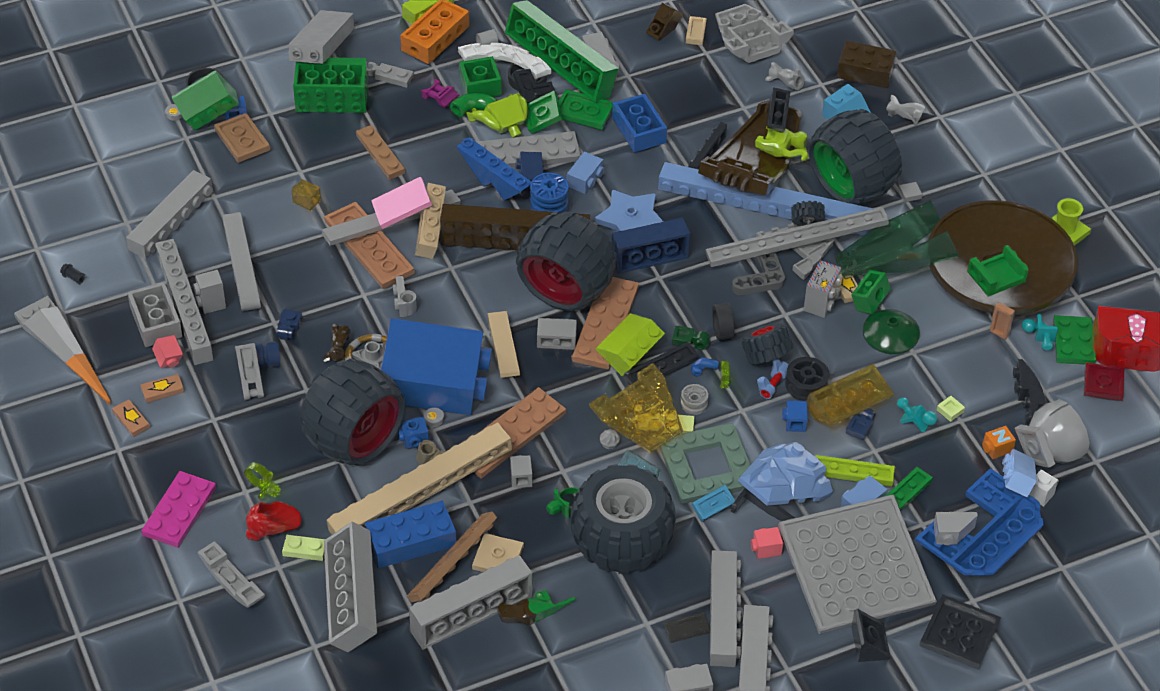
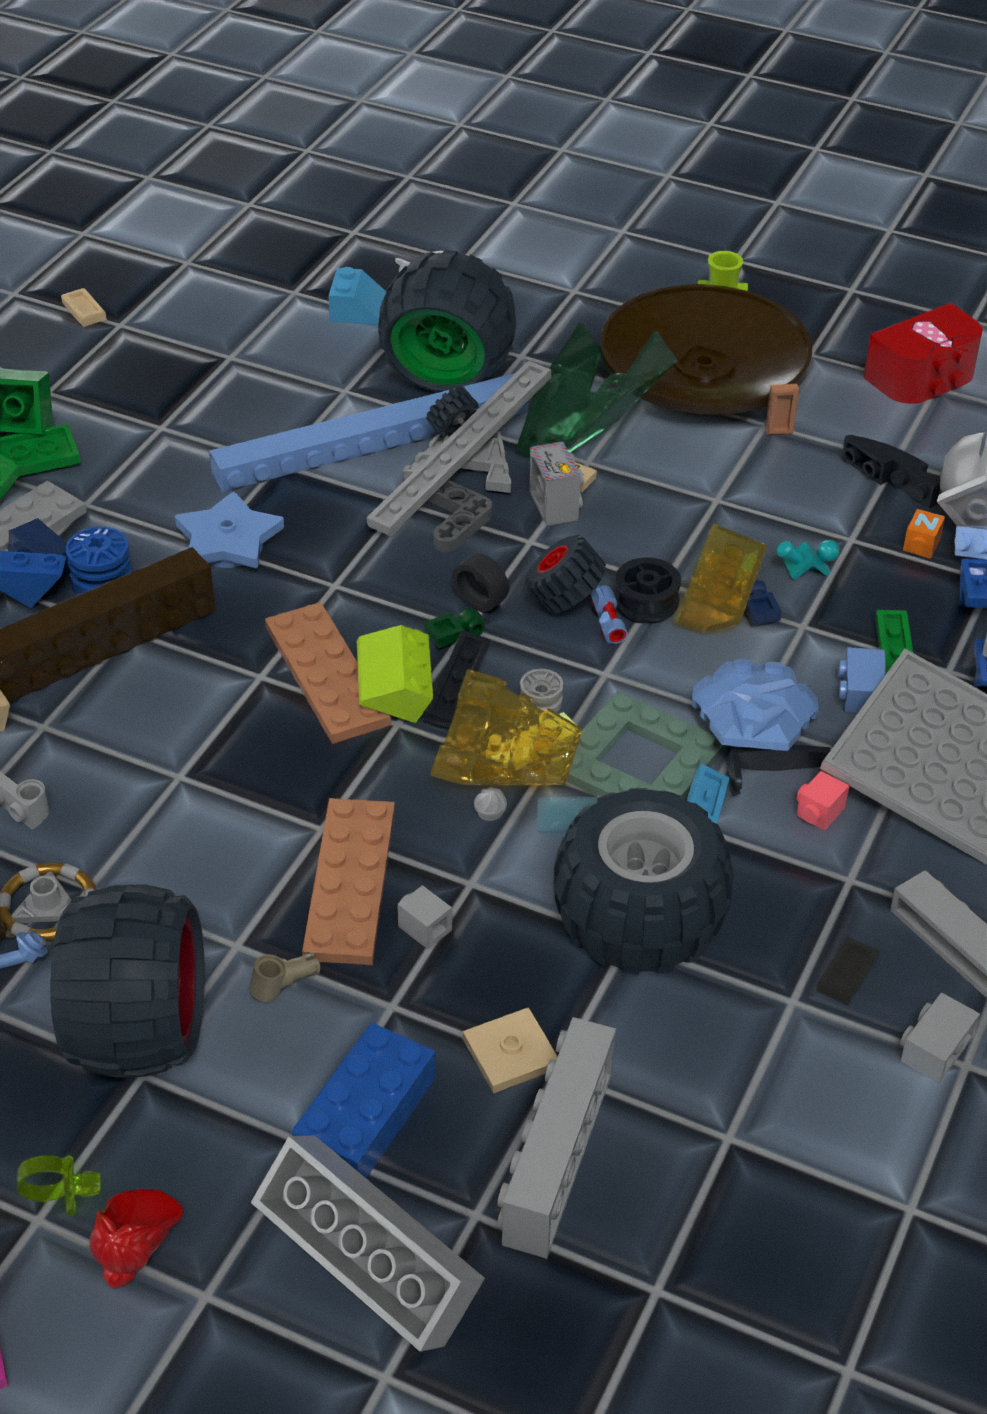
camera: 40 degrees left, 5 degrees down
(228, 576) = (147, 1369): light grey slope -> none
(304, 547) = (219, 1237): yellowish green plate -> none
(413, 432) = (226, 961): blue brick -> none
(426, 479) = (306, 1029): tan brick -> none
(434, 417) = (223, 926): light grey tile -> none
(436, 365) = (172, 836): blue brick -> none
(455, 553) = (456, 1097): medium nougat plate -> none
(503, 344) = (232, 779): tan slope -> none
(531, 609) = (637, 1088): animal -> none
(556, 333) = (282, 719): light grey brick -> none
(559, 504) = (522, 924): green piece -> none
(566, 261) = (224, 613): black wheel -> none
(585, 172) = (115, 510): medium blue brick -> none
(639, 122) = (127, 427): blue brick -> none
(651, 245) = (295, 549): dark blue brick -> none
(664, 21) = (36, 312): dark brown slope -> none
(703, 363) = (501, 653): blue arm -> none
(710, 145) = (240, 410): black plate -> none
(723, 609) = (869, 914): light grey brick -> none
(724, 374) = (545, 642): clear neon green tile -> none
(743, 164) = (305, 385): dark brown windscreen -> none
(751, 34) = (165, 276): light grey wedge -> none
(778, 109) = (288, 326): black slope -> none
(779, 142) = (324, 361): lime animal -> none
(790, 78) = (252, 299): light grey animal -> none
(795, 416) = (681, 638): blue brick -> none
(857, 470) = (823, 652): lime plate -> none
(866, 64) = (328, 245): dark brown brick -> none
(871, 291) = (608, 458): green brick -> none
(891, 331) = (668, 492): dark green dish -> none
(910, 192) = (523, 344): light grey tile -> none
(950, 408) = (831, 529): yellowish green plate -> none
(998, 272) = (729, 357): green panel -> none
(1042, 331) = (825, 402): teal piece -> none
(1074, 340) = (861, 394): green plate -> none
(1104, 381) = (942, 415): dark red plate -> none

